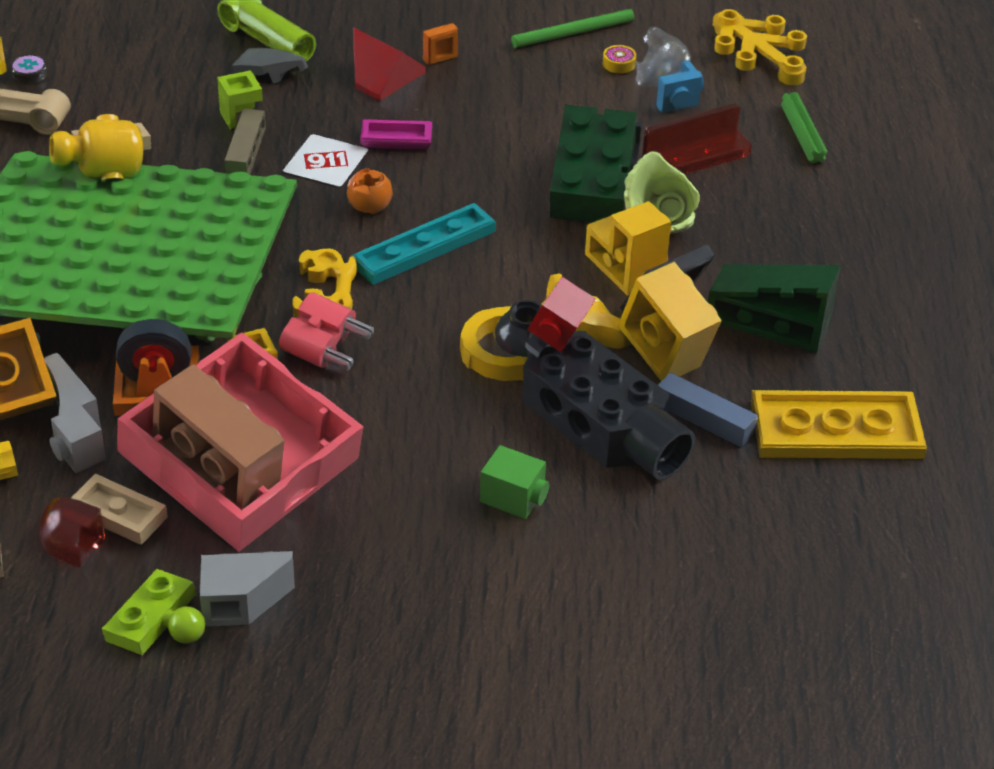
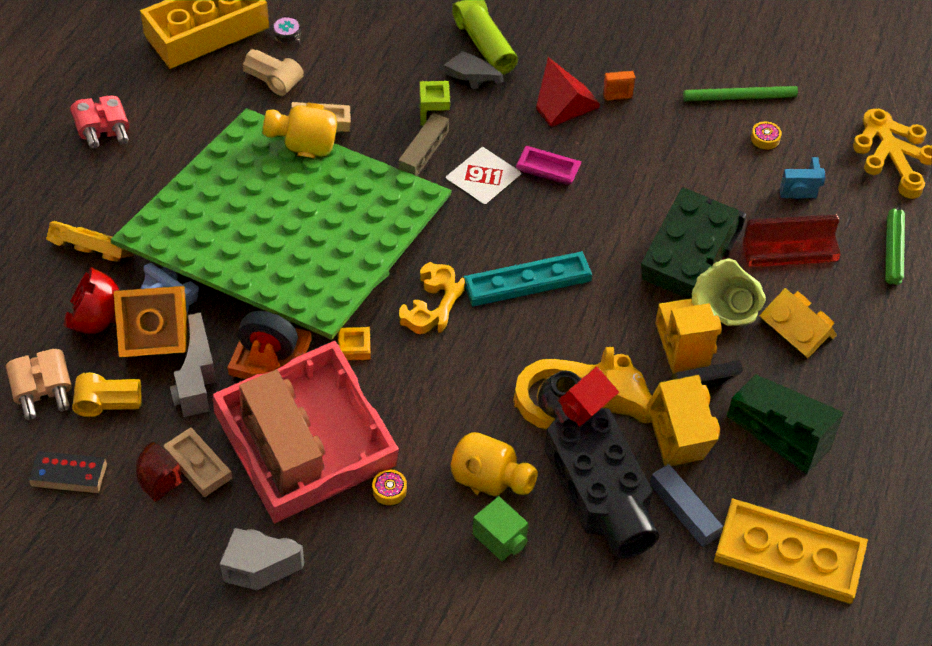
camera: 20 degrees right, 10 degrees up
(154, 607) = (190, 560): lime plate -> none
(318, 331) = (407, 343): coral piece -> none
(362, 478) = (389, 487): none -> tile
(369, 191) = (501, 219): orange piece -> none
(472, 423) = (490, 466): none -> yellow piece
(662, 57) = (799, 147): clear hair -> none
(740, 214) = (797, 322): none -> yellow bracket

